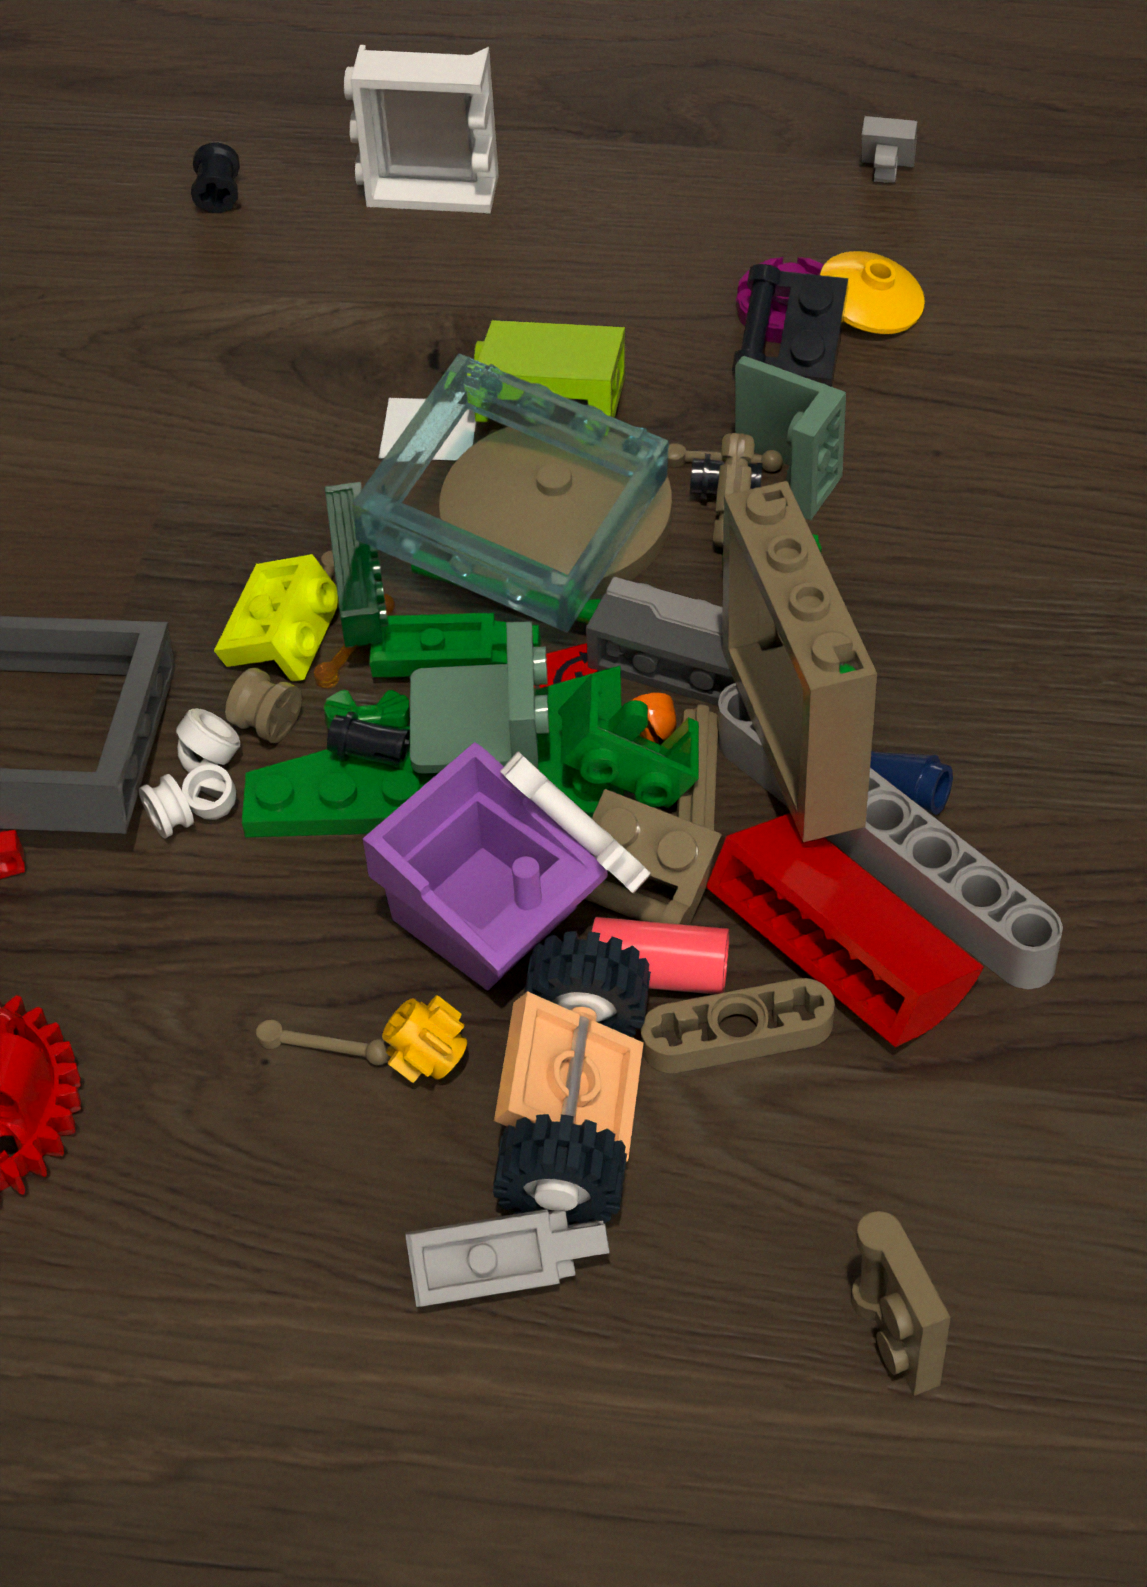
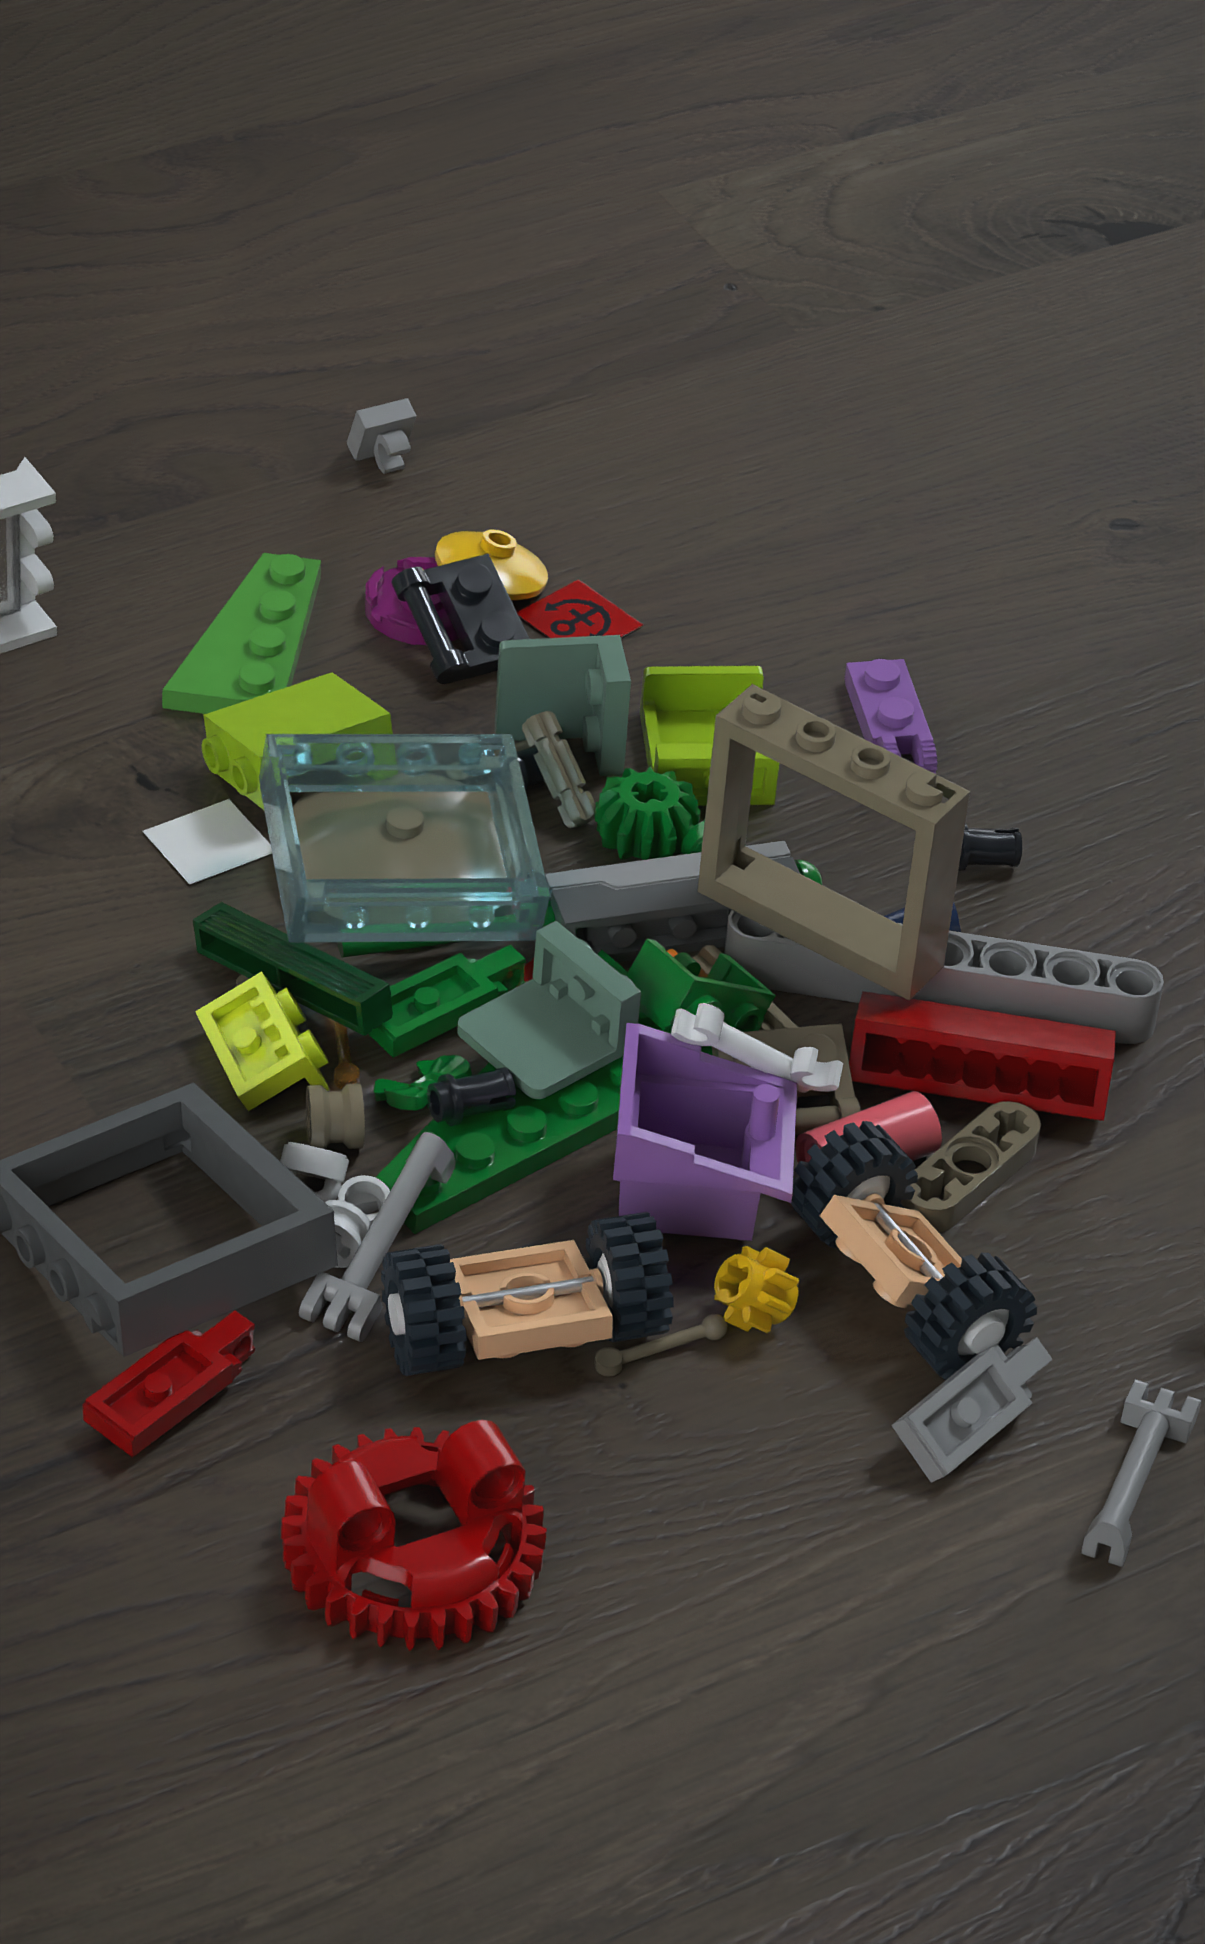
camera: 45 degrees left, 10 degrees down
(118, 865) = (350, 1293): none -> light grey hinge
(226, 941) = (527, 1296): none -> plate
(626, 276) = (252, 639): none -> bright green wing
(657, 1366) = (1153, 1424): none -> light grey hinge
(900, 519) = (680, 719): none -> lime panel
(908, 369) = (578, 613): none -> red sticker
(1042, 729) = (991, 847): none -> black pin
(1087, 571) = (890, 709): none -> medium lavender hinge

